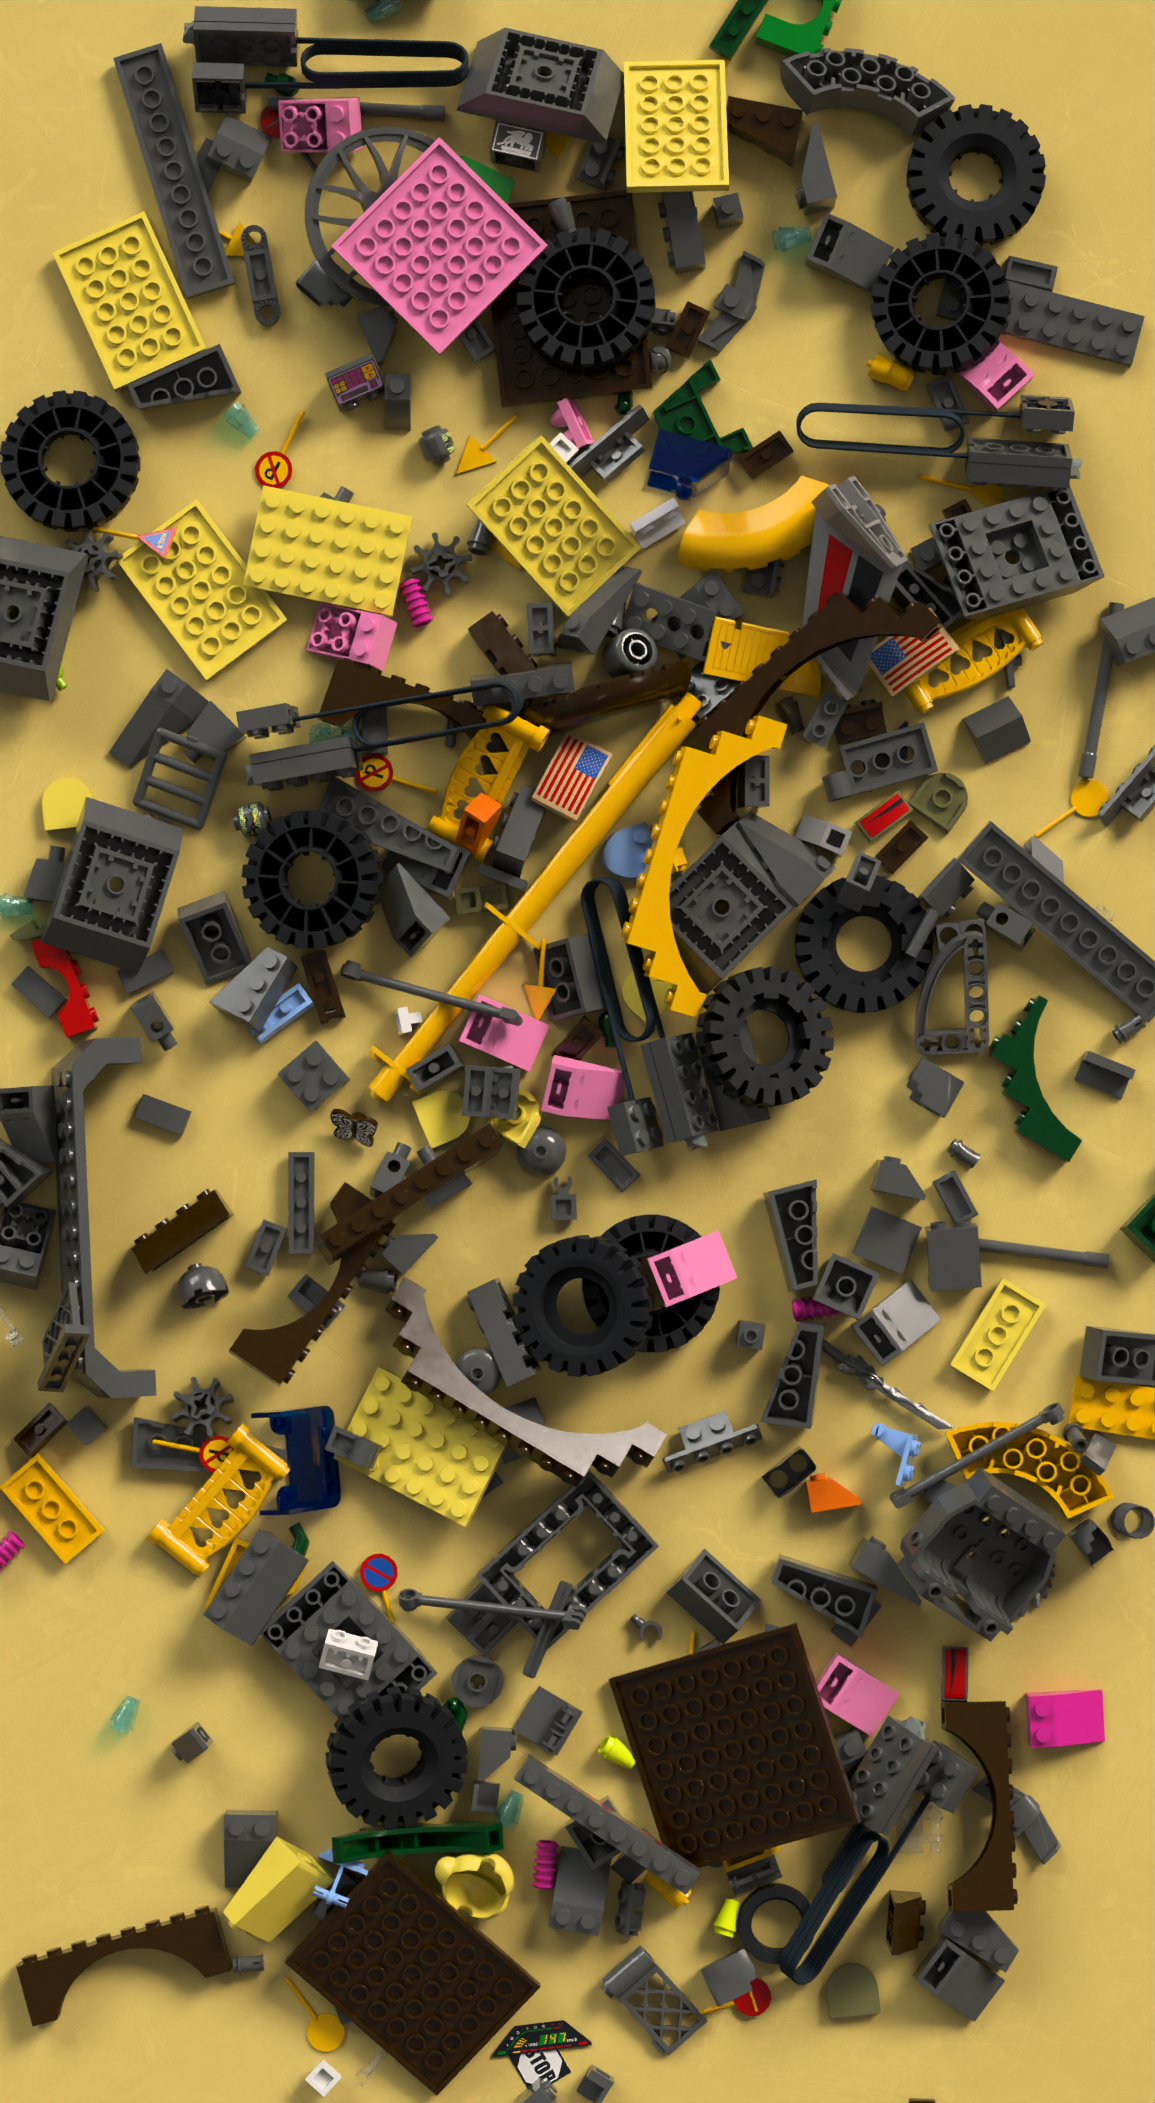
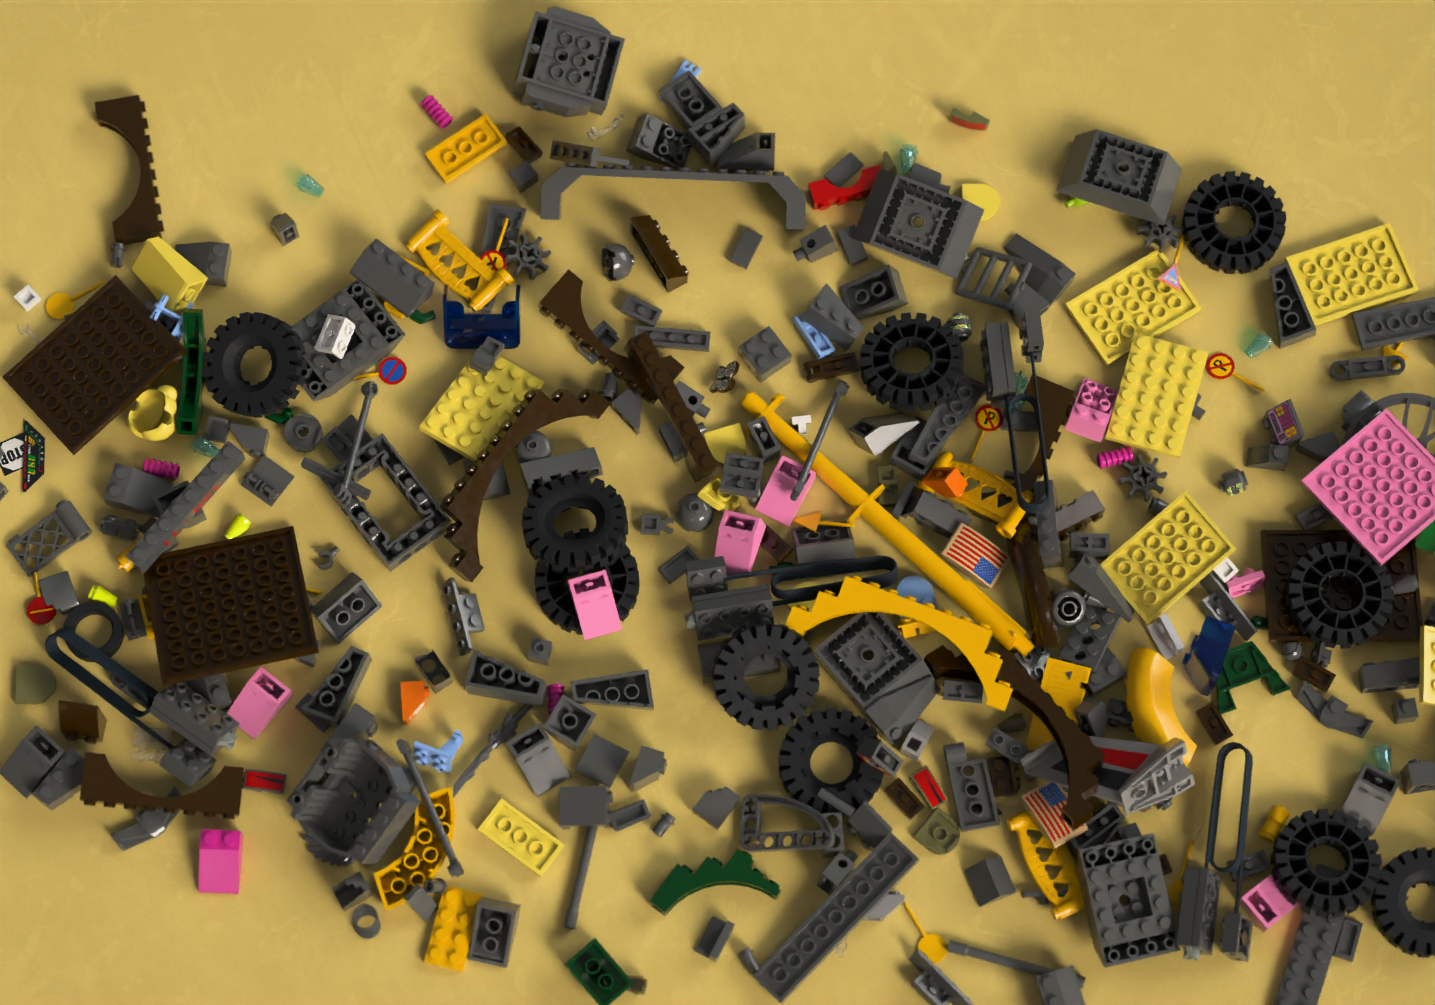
camera: 90 degrees right, 15 degrees down
(475, 454) = (1224, 512): yellow piece -> none
(777, 611) = (1092, 717): none -> dark grey slope

